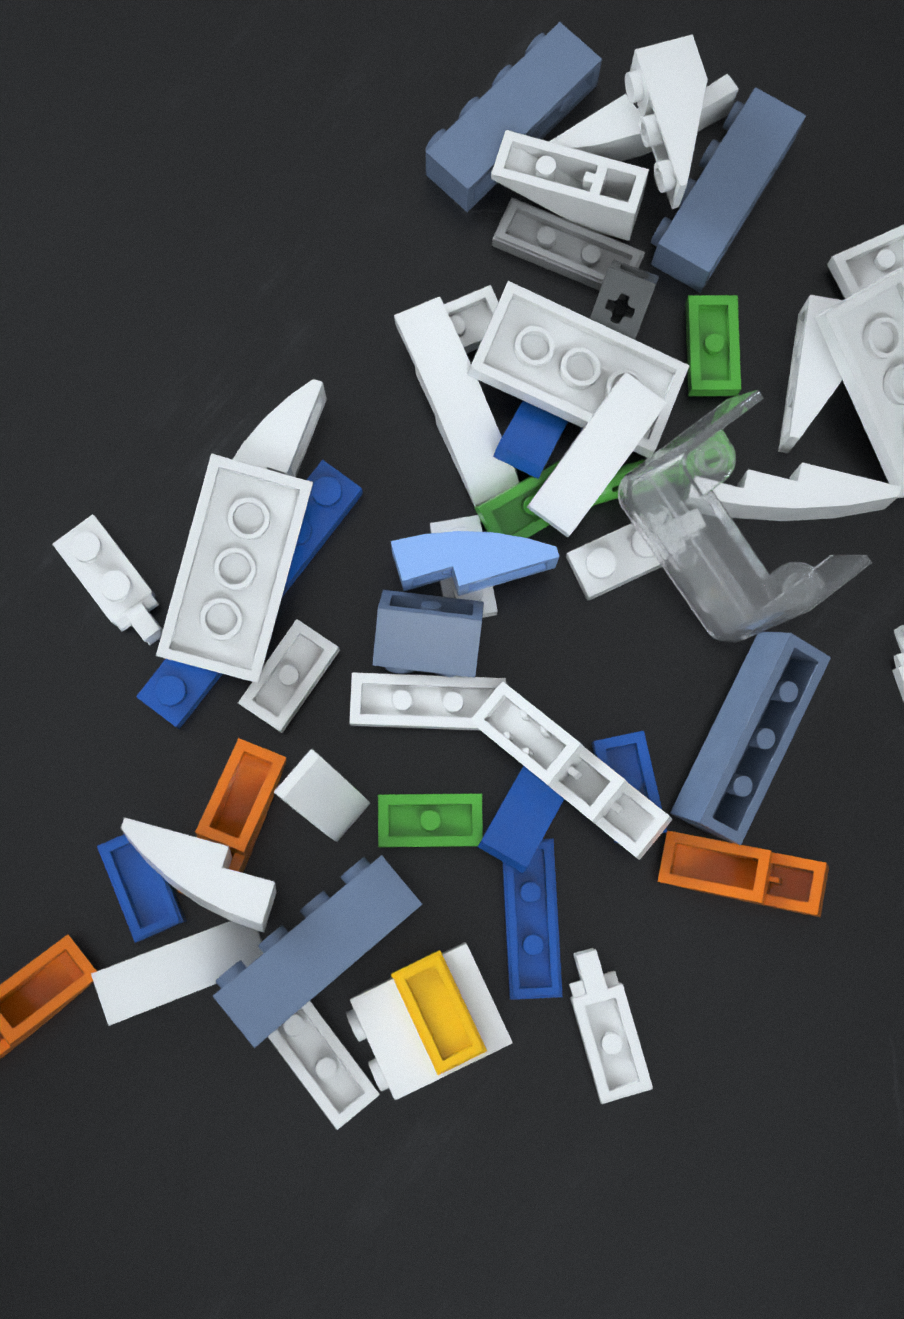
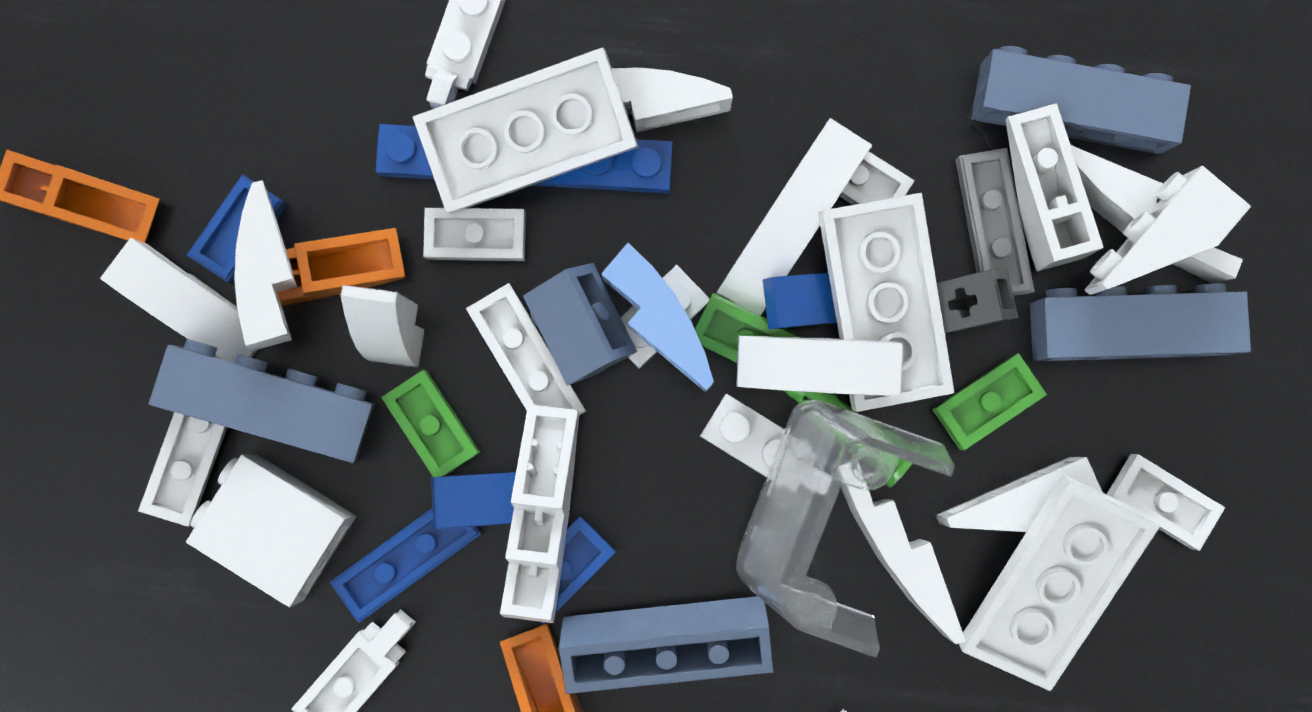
camera: 60 degrees right, 5 degrees up
(439, 1012) = (273, 532): yellow tile -> none

